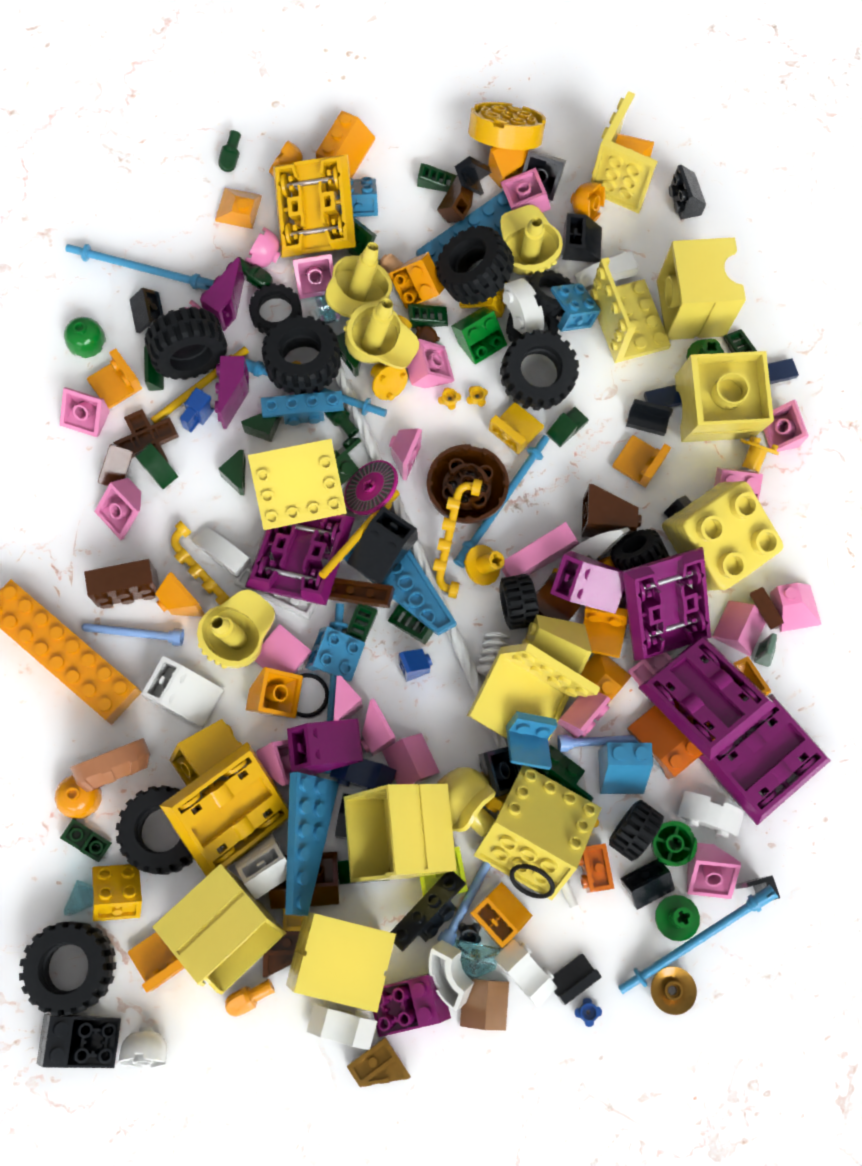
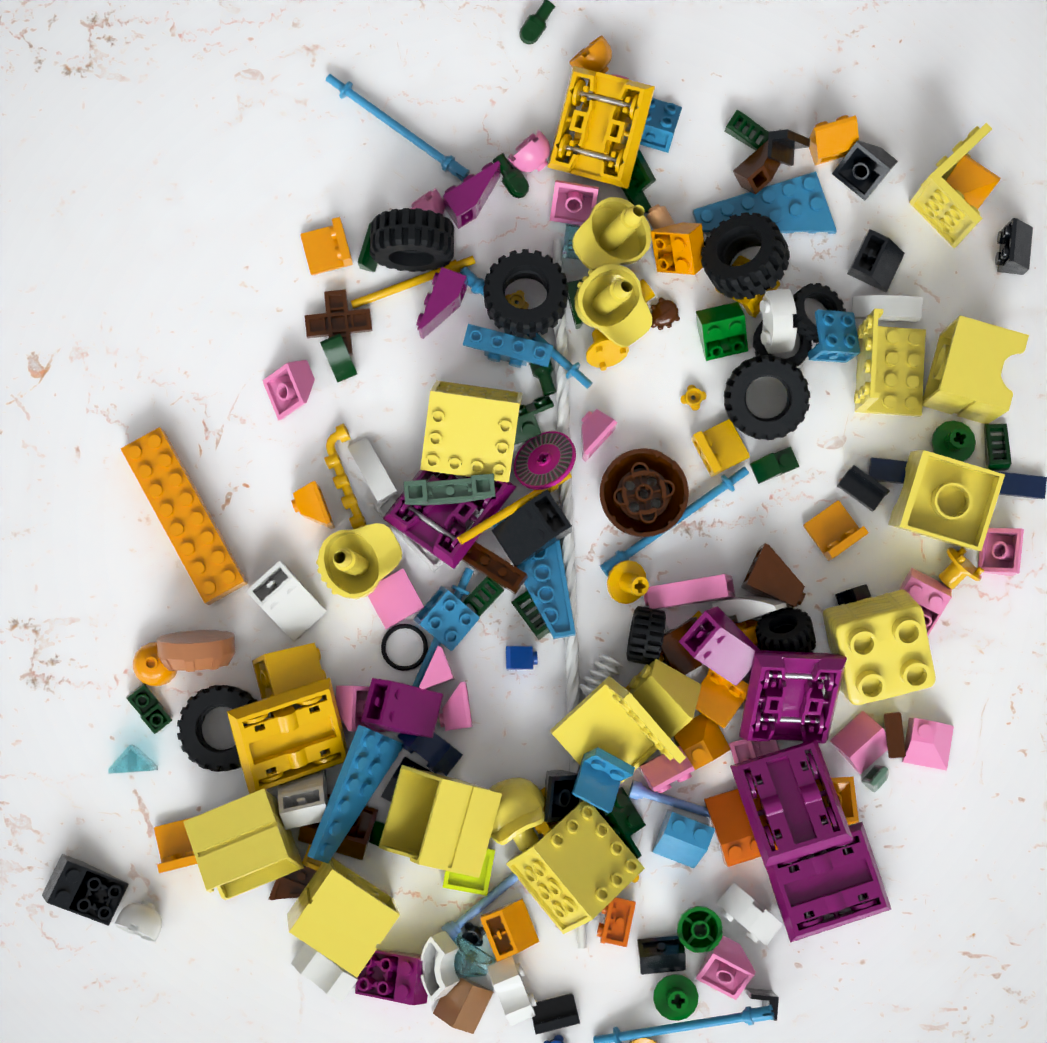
camera: 25 degrees right, 10 degrees up
(37, 961) = (66, 825): black tyre -> none
(83, 412) = (284, 272): bright pink slope -> none
(84, 337) = (313, 186): green cylinder -> none
(115, 464) = (298, 342): slope -> none
(116, 892) = (161, 769): yellow bracket -> none
(122, 583) = (265, 471): reddish brown brick -> none
(145, 308) = (387, 179): black panel -> none
(174, 636) = (296, 540): light blue piece -> none
(197, 410) = (400, 311): blue piece -> none
(234, 471) = (415, 391): dark green slope -> none
(238, 208) = (523, 90): light orange slope -> none
(246, 998) = (246, 912): light orange arm -> none
(261, 427) = (458, 353): dark green slope -> none
(272, 292) = (518, 203): black tyre -> none
(275, 693) = (374, 636): light orange slope -> none
(297, 538) = (449, 491): none -> sand green slope
(347, 137) = (663, 58): light orange slope -> none
(378, 1066) = (344, 1018): pearl gold wing -> none
(411, 760) = (481, 751): bright pink slope -> none
(414, 309) = (663, 276): dark green slope -> none
(429, 912) = (441, 901): black bracket -> none
(430, 366) = (657, 348): bright pink slope -> none
(448, 392) = (663, 383): yellow plate -> none
(449, 524) = (607, 531): yellow bar -> none
(506, 126) = (845, 102): yellow brick -> none
(526, 190) = (836, 186): bright pink slope -> none
(531, 239) = (817, 245): light yellow piece -> none
(538, 870) = (558, 905): black tyre -> none
(588, 199) = (900, 218): light orange cylinder -> none
(636, 830) = (668, 903): black tyre -> none

